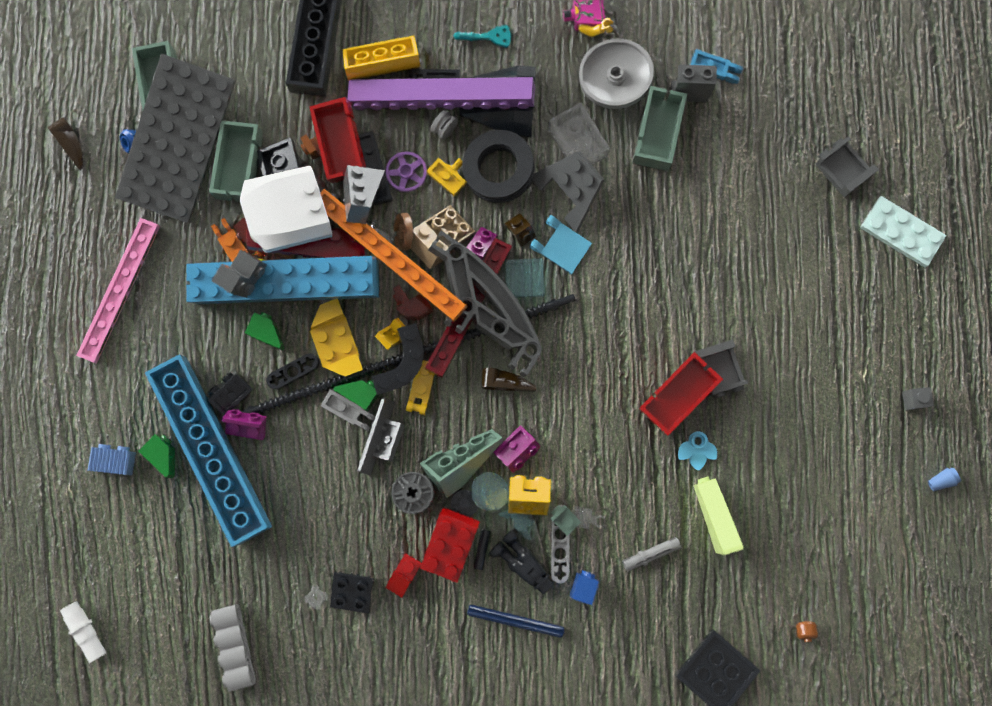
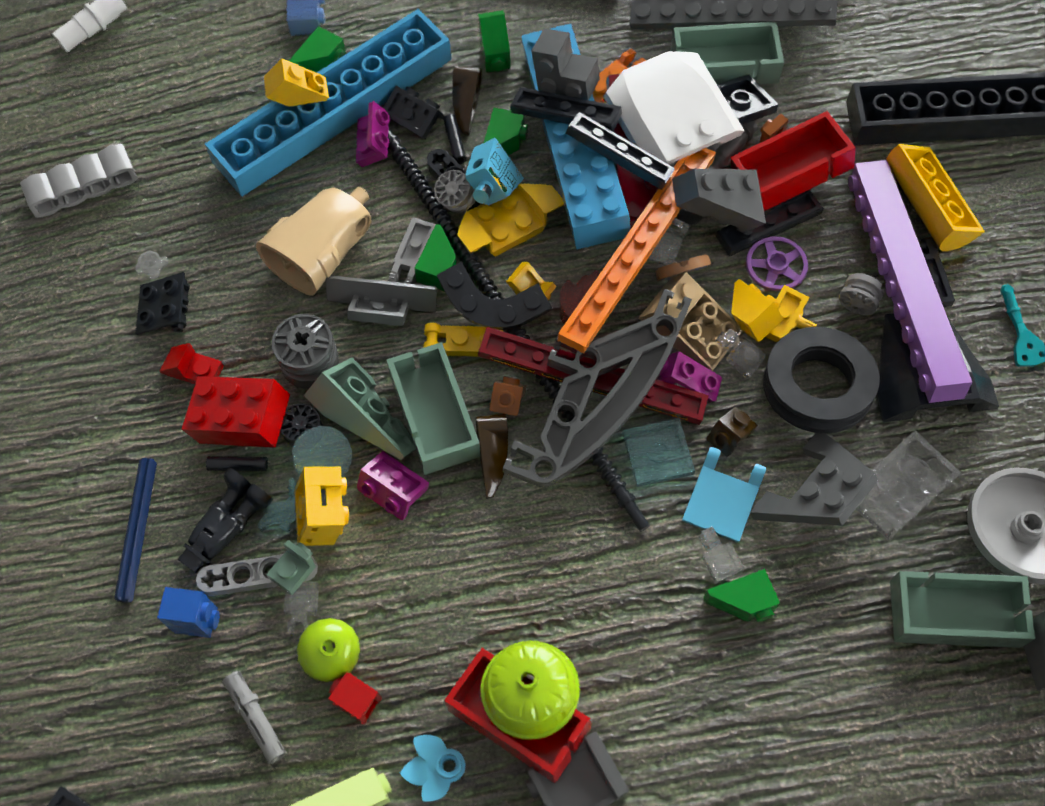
camera: 80 degrees right, 15 degrees down
(185, 322) = (494, 41): none -> green slope
(199, 472) = (294, 84): none -> yellow slope
(223, 353) = (465, 95): none -> dark brown piece
(258, 366) = (454, 138): none -> black piece
(271, 281) = (563, 108): none -> black tile
(303, 343) = (491, 173): none -> medium azure torso
(308, 371) = (454, 191): none -> light grey wheel
(317, 251) = (620, 150): none -> black tile
(326, 475) = (315, 238): none -> tan torso
(444, 195) = (753, 311): none -> yellow slope
(469, 209) = (743, 353): none -> clear plate
(470, 363) = (507, 396): none -> dark orange bracket
(471, 413) = (433, 409): none -> sand green piece
(602, 256) = (720, 559): none -> clear plate
(619, 503) = (335, 661): none -> lime cylinder
(629, 245) = (745, 597): none -> green slope
(650, 491) = (354, 697): none -> red brick
(661, 393) = (534, 708): none -> lime hat

